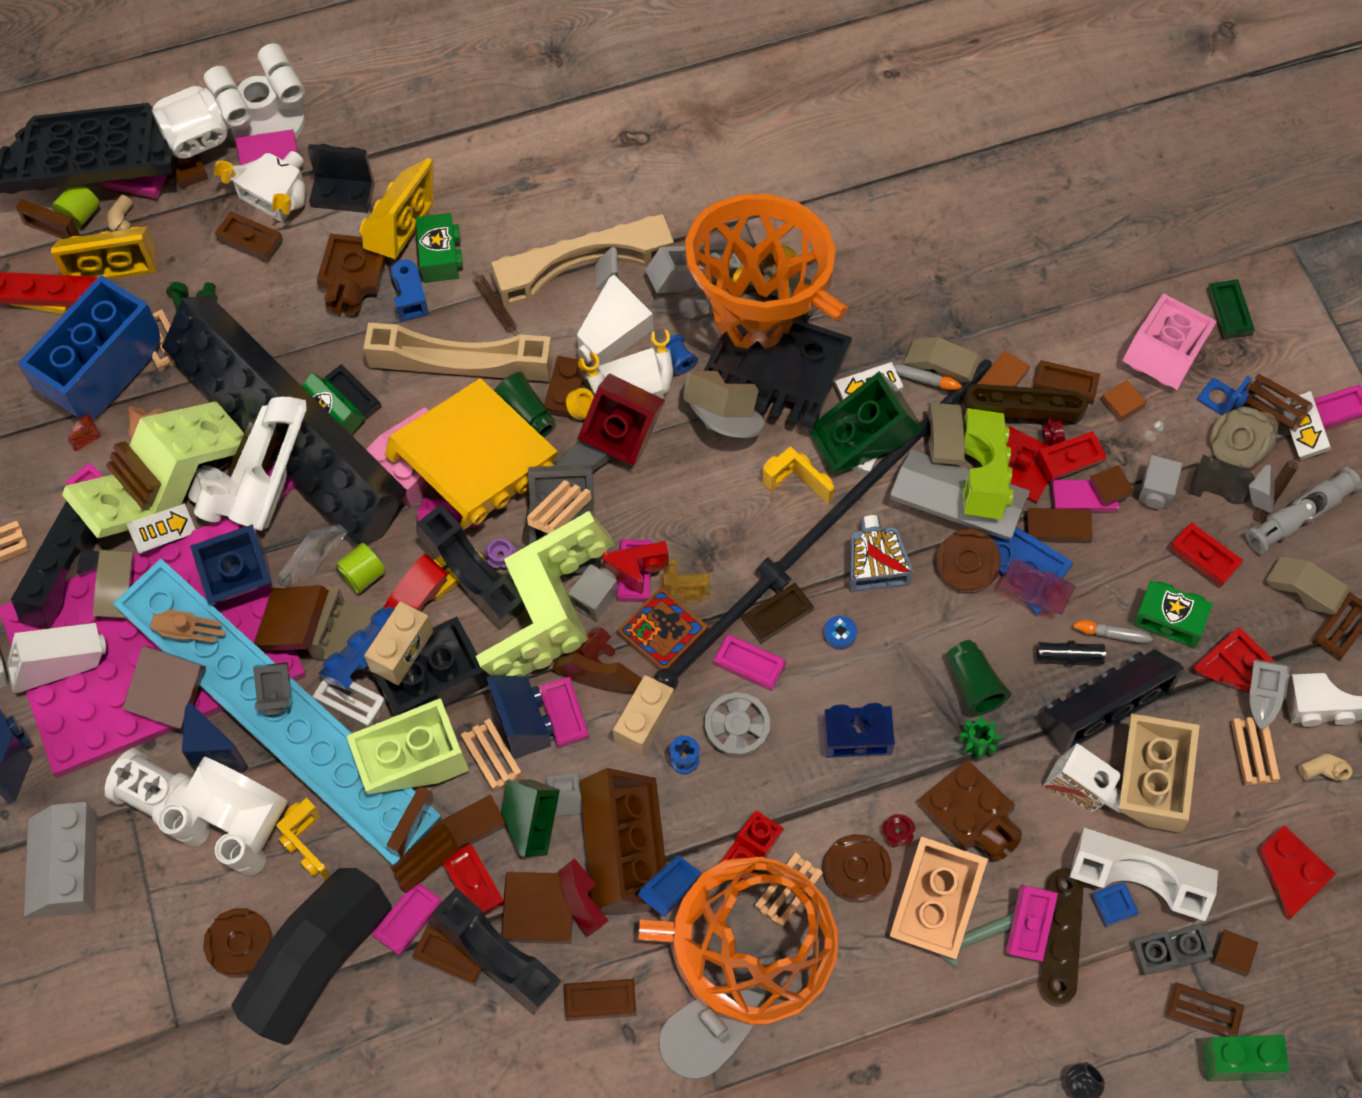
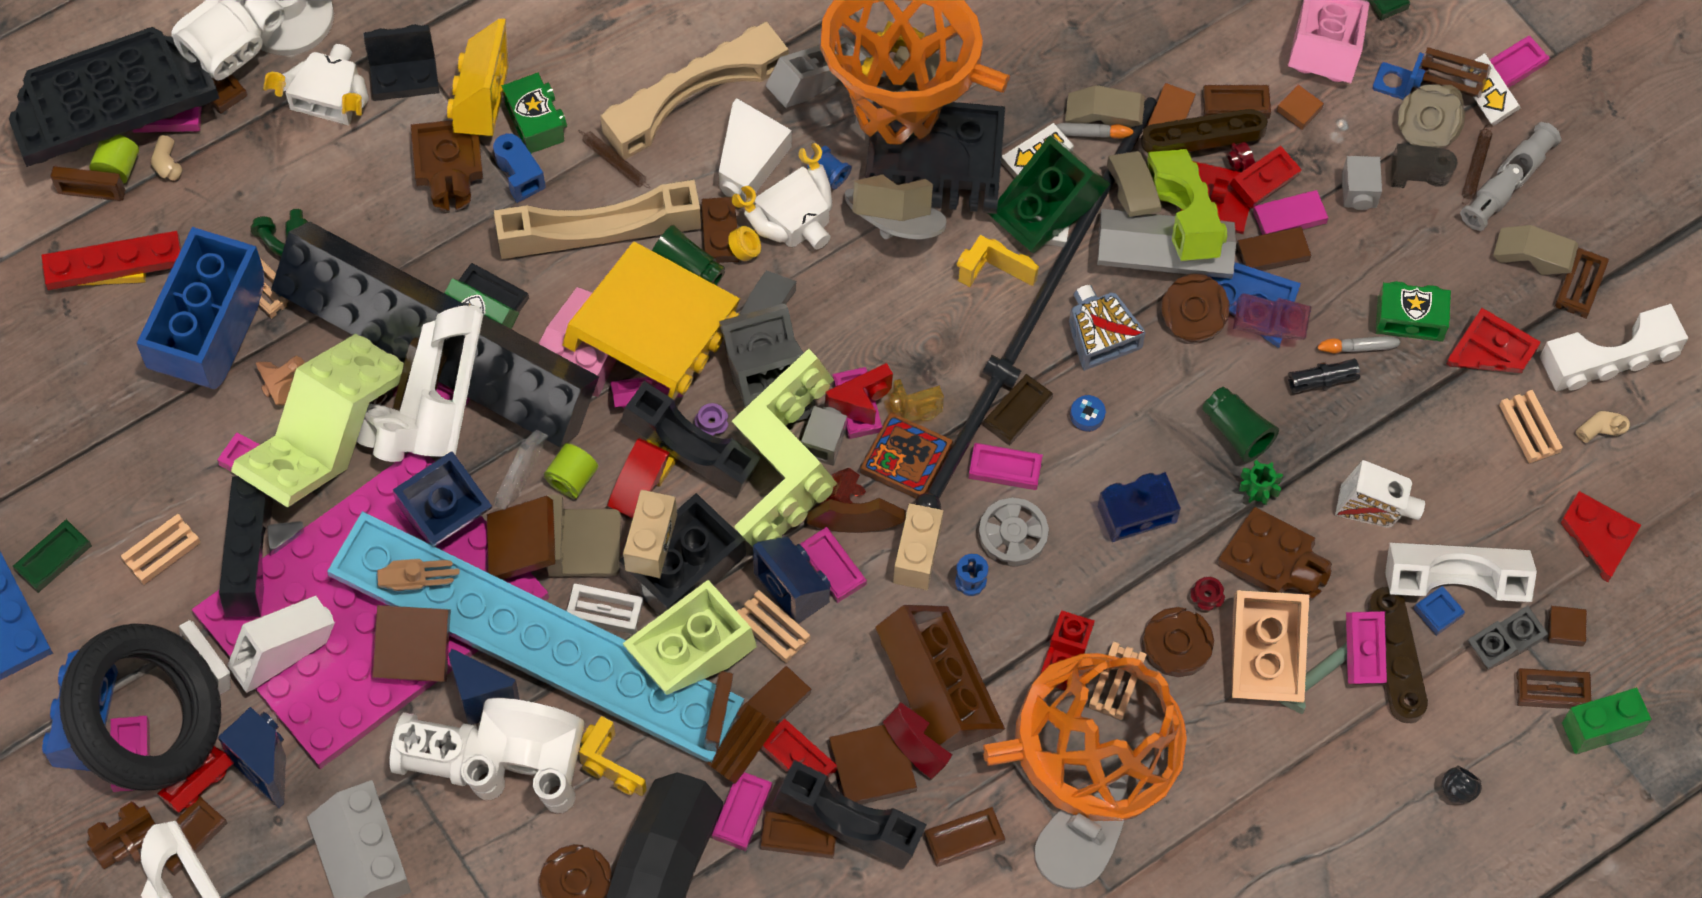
camera: 20 degrees left, 0 degrees up
(83, 433) = (215, 403): clear red tile -> none
(107, 254) = (172, 203): yellow slope -> none
(112, 580) = (315, 550): dark tan slope -> none
(133, 475) = (298, 437): reddish brown tile -> none
(161, 528) = (344, 482): white tile -> none
(248, 236) = (319, 148): reddish brown plate -> none
(272, 688) = (531, 613): dark grey bracket -> none
(276, 143) = (299, 45): dark pink tile -> none
(341, 665) = (603, 556): blue wing -> none
(530, 815) = (835, 673): dark green slope -> none
(554, 506) = (757, 350): light nougat tile -> none
(570, 793) = (860, 646): light grey slope -> none
(606, 267) = (723, 94): light grey slope -> none
(621, 419) = (797, 248): dark red brick -> none
(669, 885) = (1001, 705): blue tile -> none
(1110, 699) = (1377, 411): black slope -> none
(1111, 485) = (1315, 197): reddish brown tile -> none
(1159, 772) = (1447, 469): tan slope -> none
(1206, 554) = (1428, 243): red plate -> none
(1263, 490) = (1466, 165): light grey slope -> none
(1268, 690) = (1528, 363): light grey plate -> none

